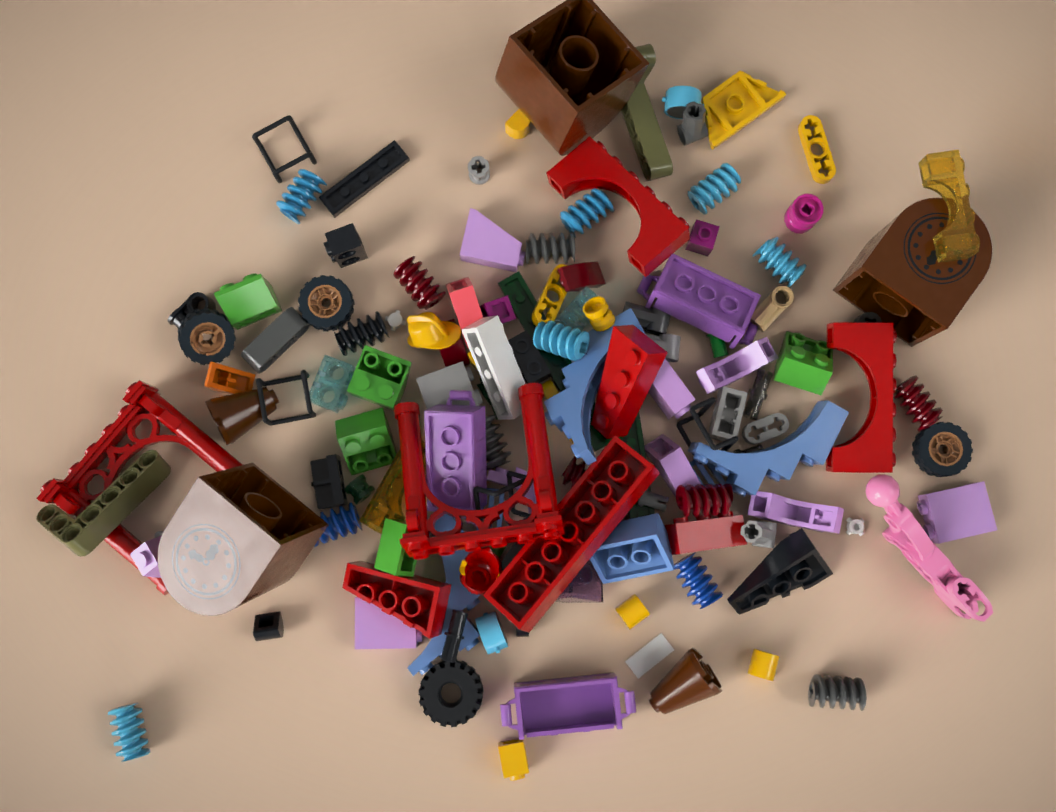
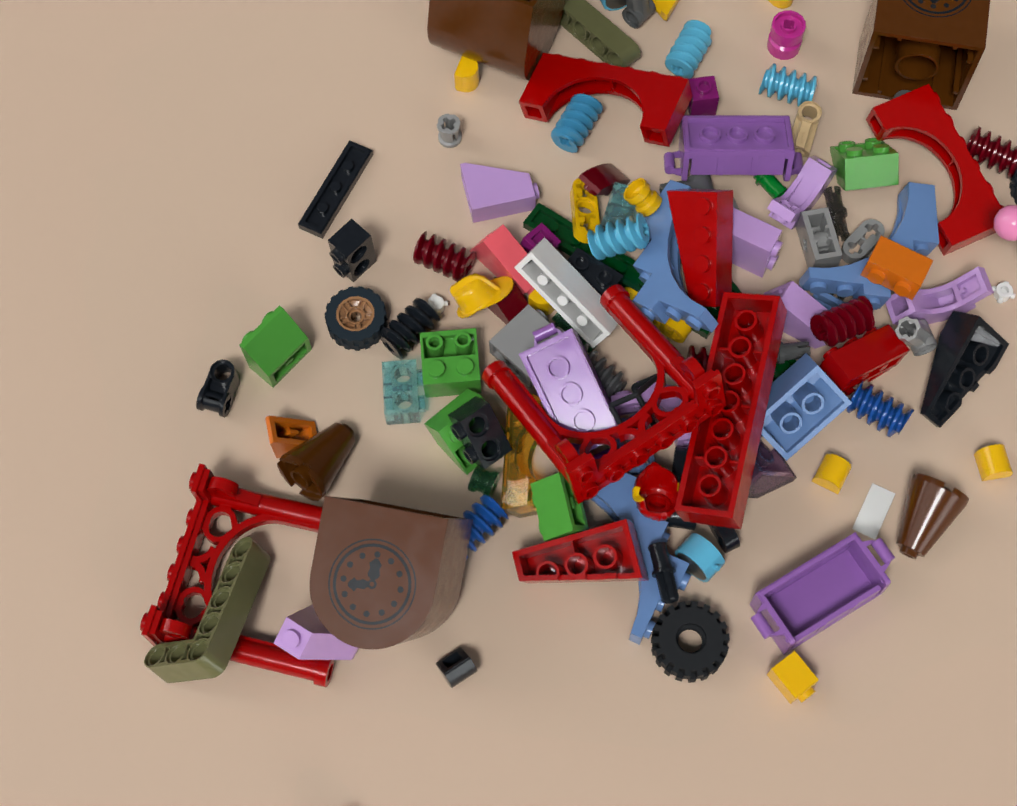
camera: 20 degrees left, 15 degrees down
(210, 323) = (231, 402): black wheel -> none
(275, 340) = (320, 376): dark grey beam -> none
(300, 194) = (279, 227): dark azure piece -> none
(304, 375) = (370, 395): black piece -> none
(308, 154) = (264, 189): black piece -> none
(328, 482) = (446, 488): black panel -> none
(368, 455) = (485, 428): none -> black brick
(381, 631) = (582, 607): lavender slope -> none
(550, 248) = (558, 166): dark grey piece -> none
(727, 444) = (837, 255): black piece -> none
(770, 477) = (896, 268): none -> orange brick

